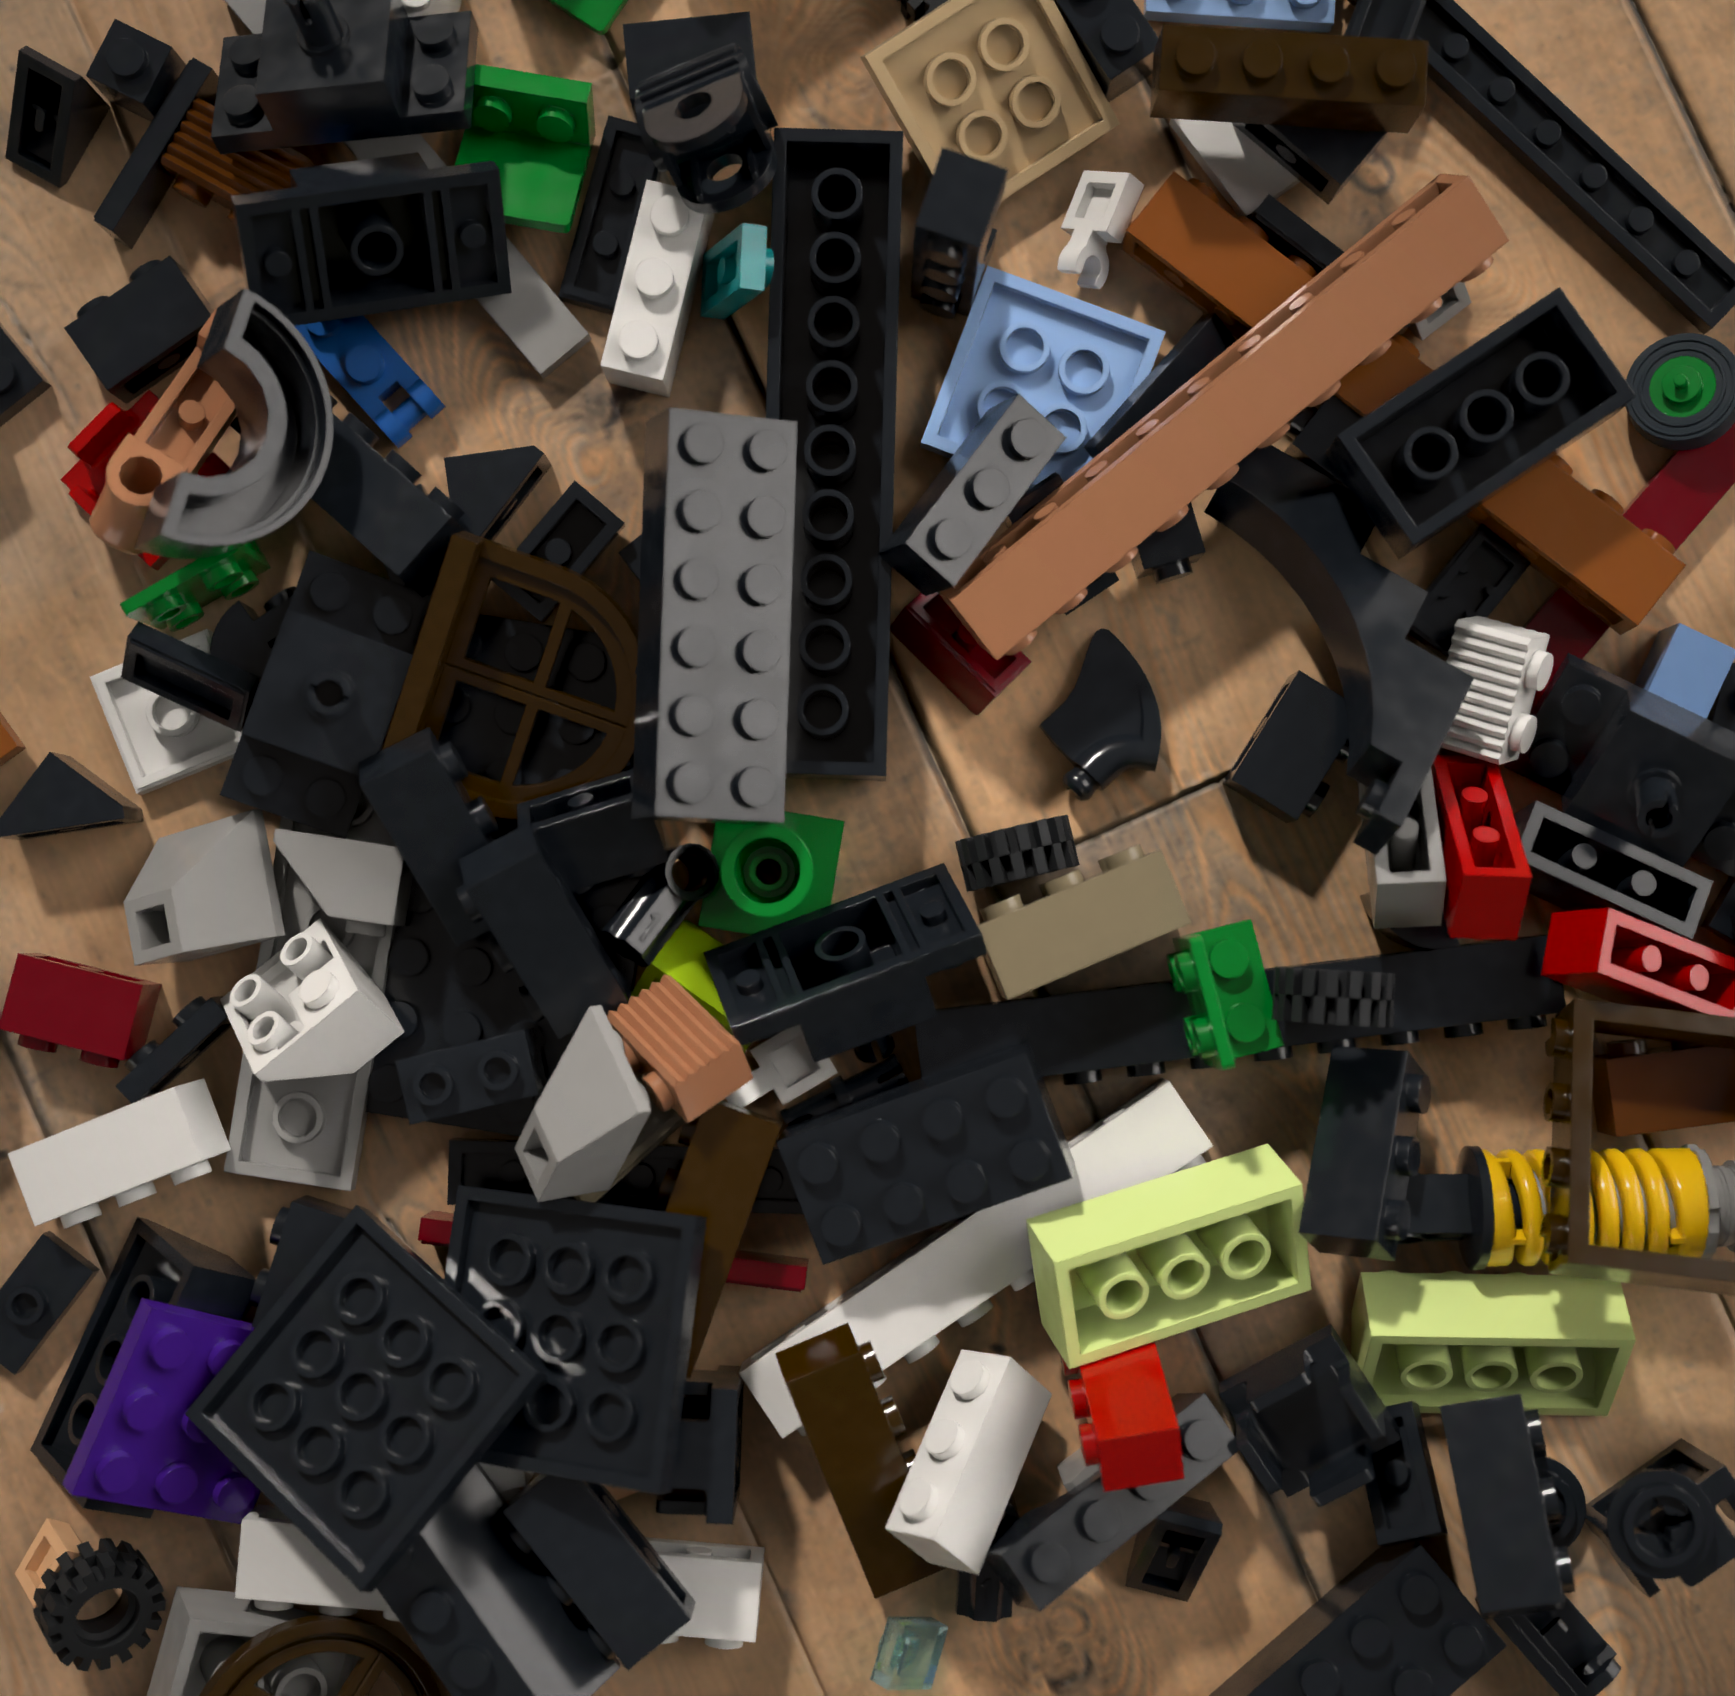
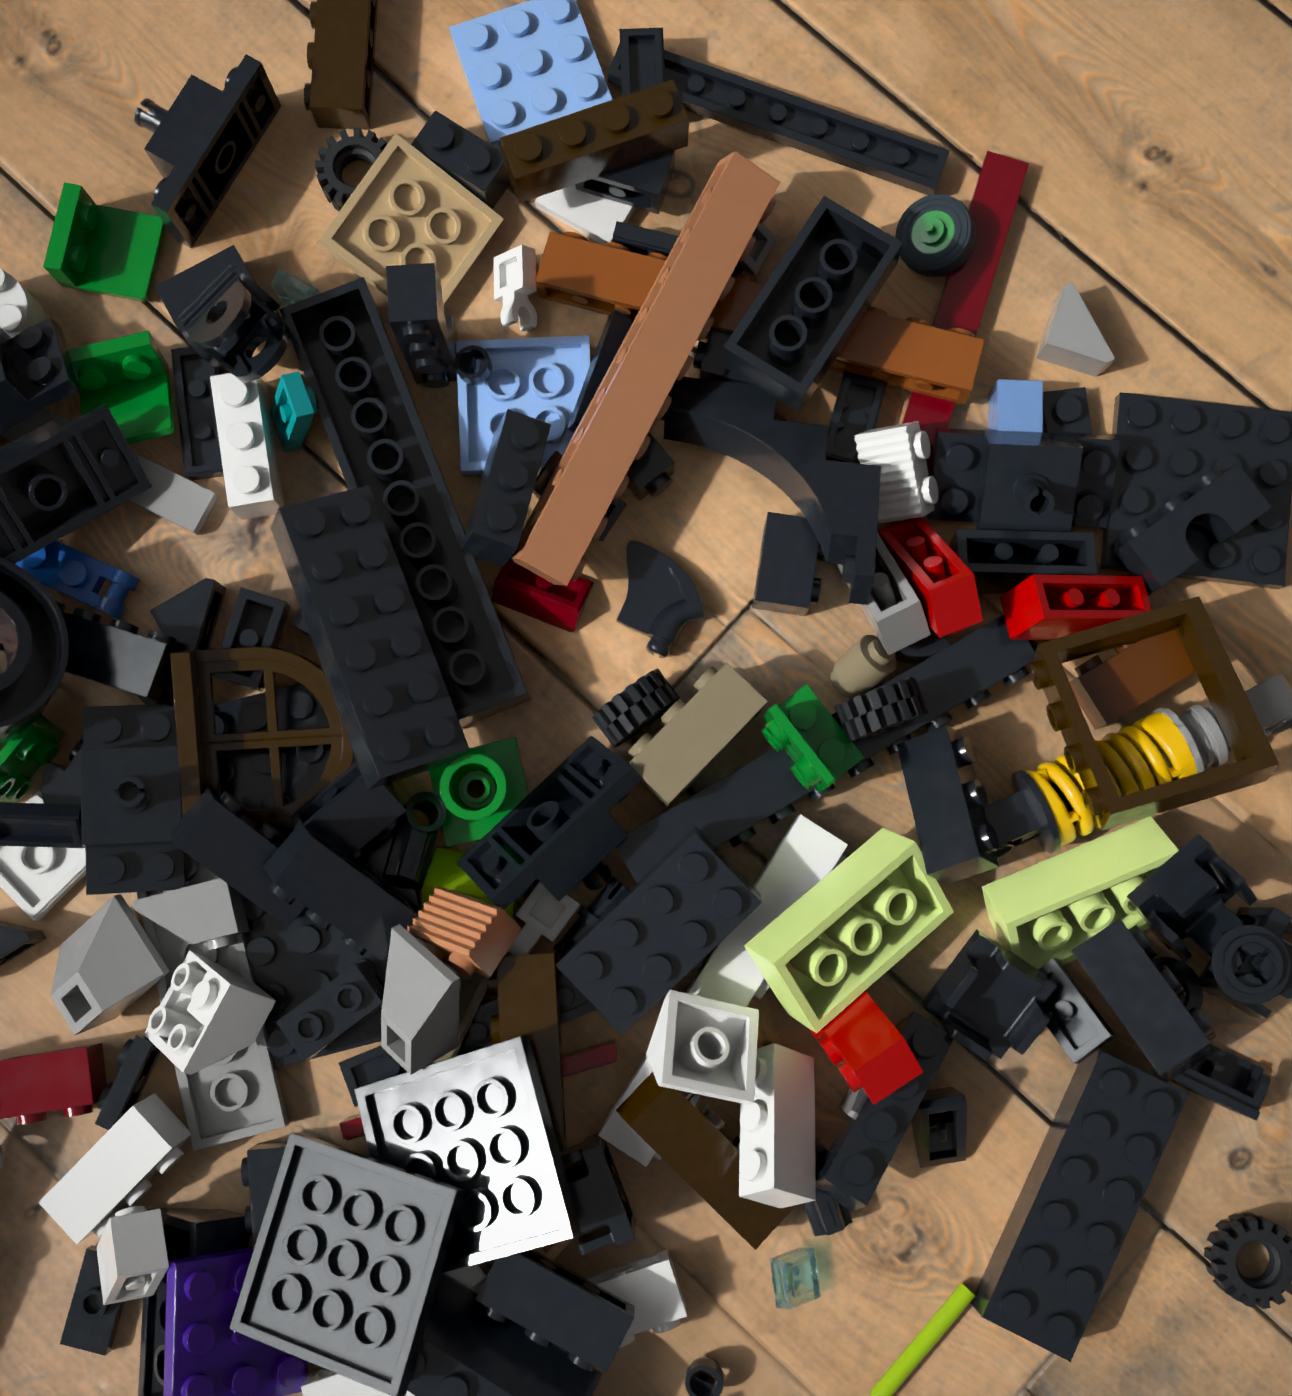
camera: 25 degrees left, 5 degrees down
(99, 1270) = (132, 1255): none -> white brick
(801, 105) = (291, 289): none -> clear light blue plate
(921, 1326) = (705, 1047): none -> white slope
(987, 304) = (466, 365): none -> black hinge
(1332, 926) = (862, 667): none -> dark tan brick
(1620, 1403) = (1190, 897): none -> black panel

